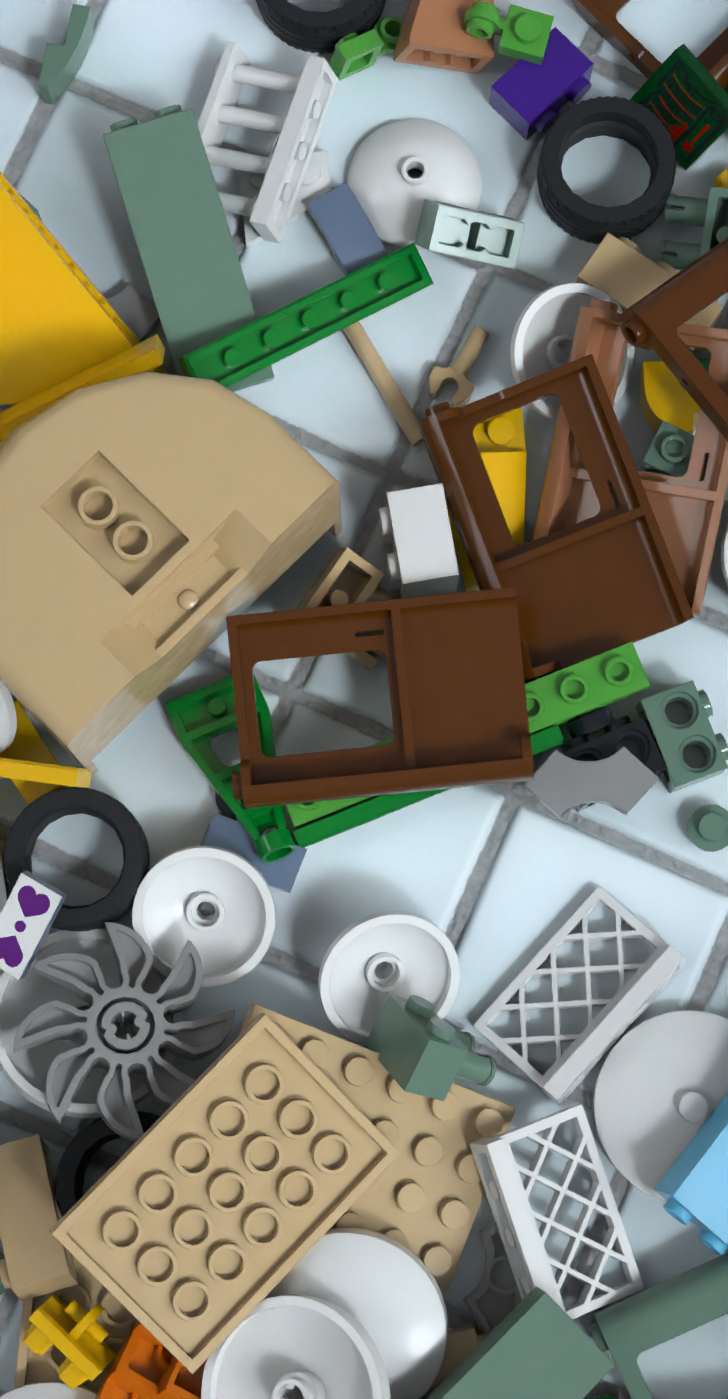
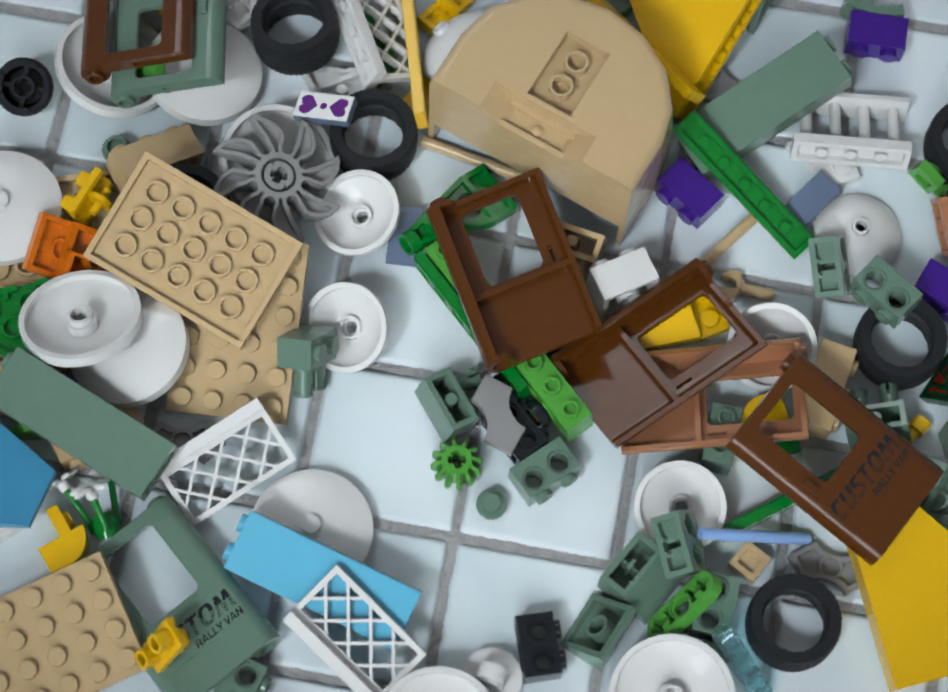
camera: 70 degrees right, 10 degrees down
(108, 61) = (875, 36): none -> dark purple brick
(138, 730) = (468, 157): none -> tan bar
(301, 399) = (688, 193): none -> dark purple brick
(536, 154) = (891, 287): none -> sand green brick
(546, 854) = (447, 404): none -> sand green brick
(611, 1021) = (348, 466): white fence -> none
(650, 877) = (447, 470): none -> bright green gear

